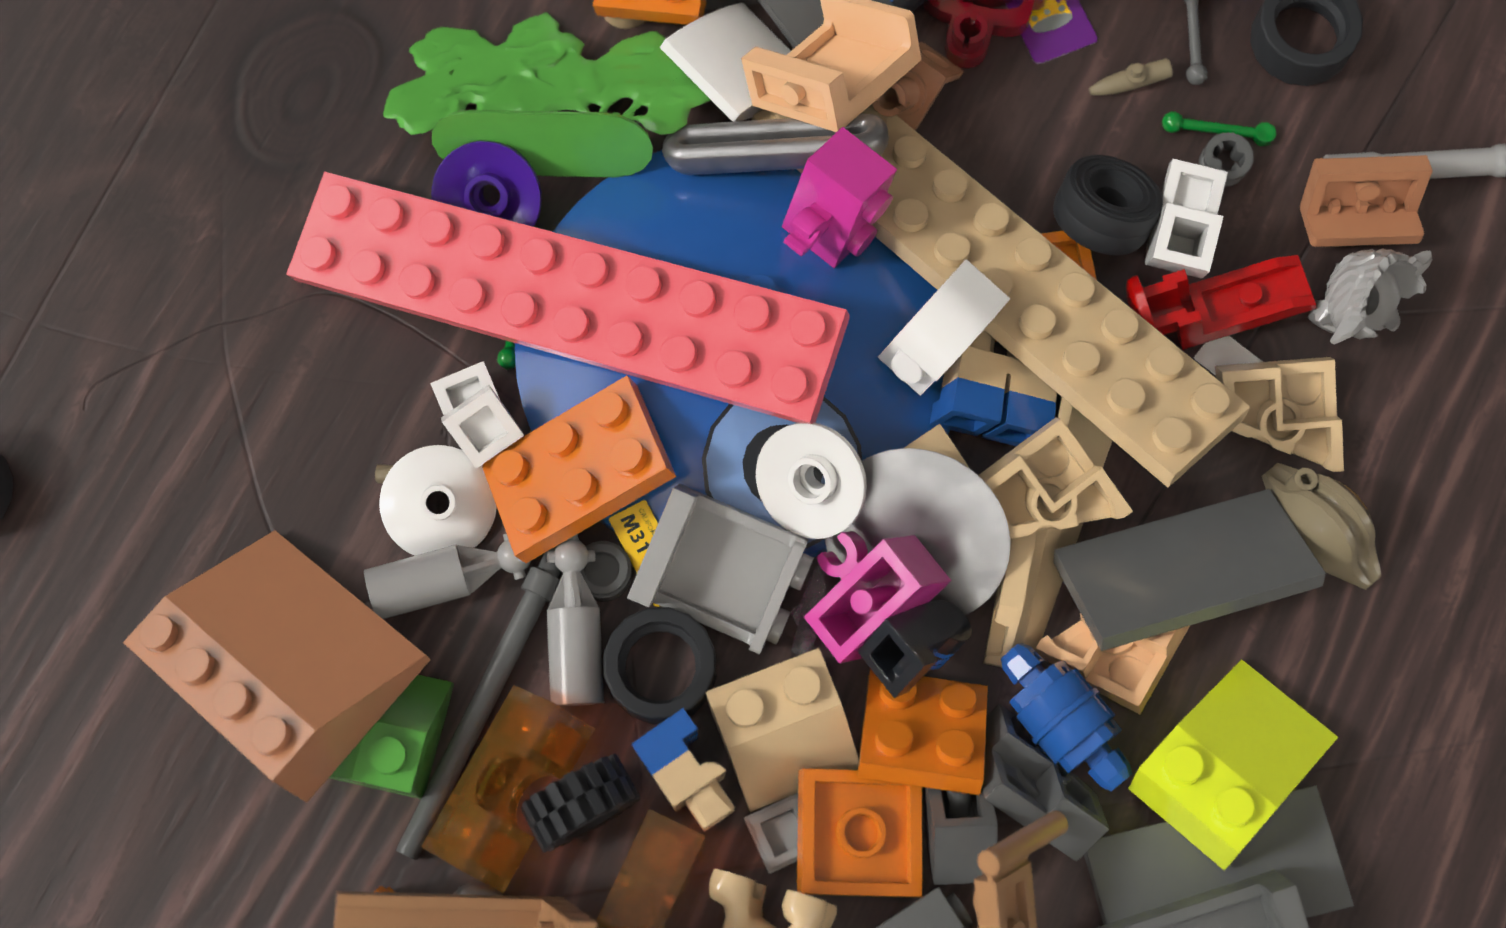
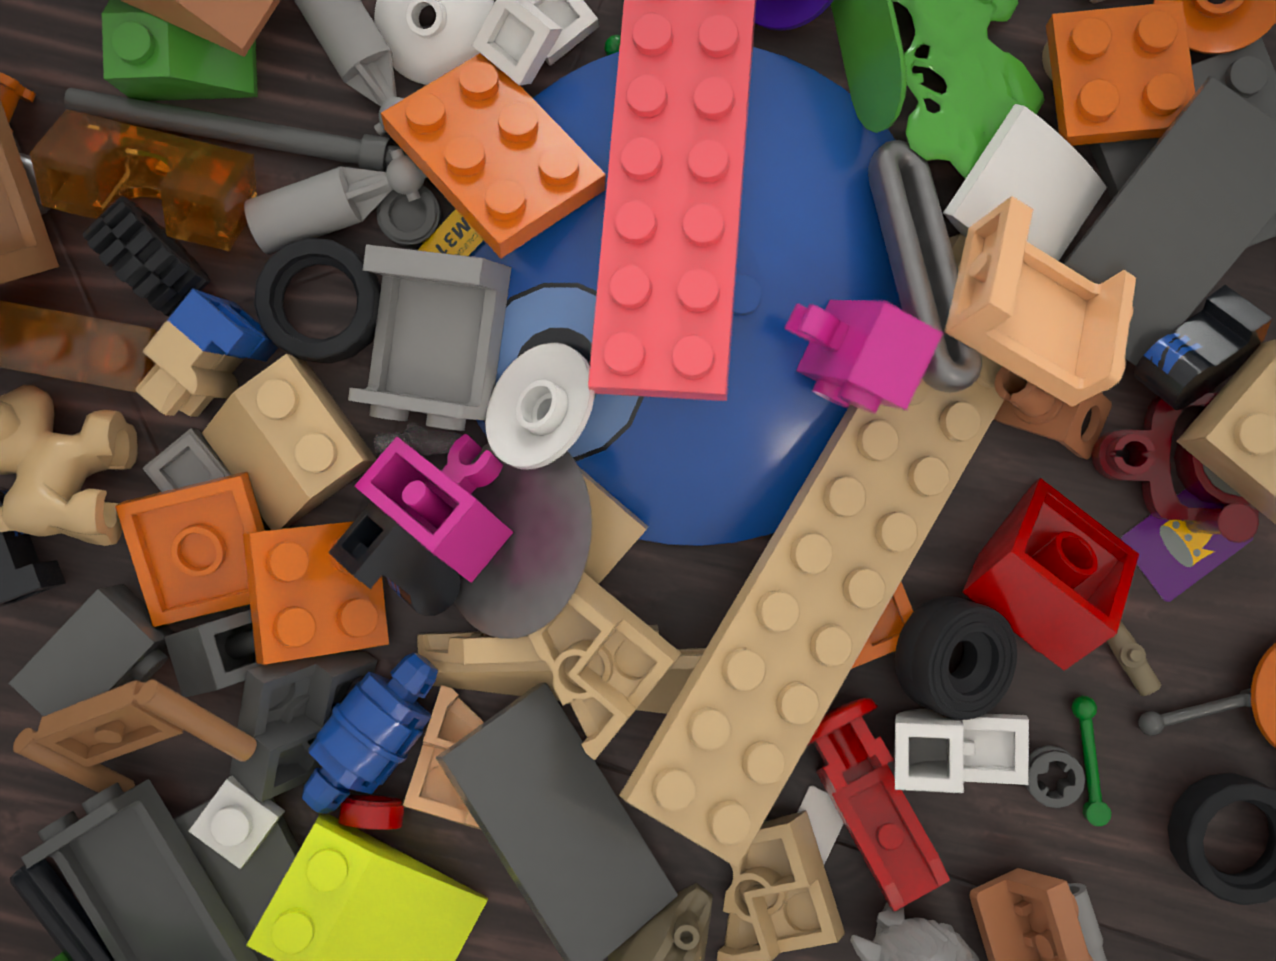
camera: 70 degrees right, 15 degrees up
(944, 327) = (745, 511): white brick -> none
(993, 396) = (700, 574): blue hips -> none
(1056, 115) = (1054, 576): none -> red slope
(1122, 862) = (236, 822): none -> white plate
(1139, 736) = (371, 812): none -> red tile

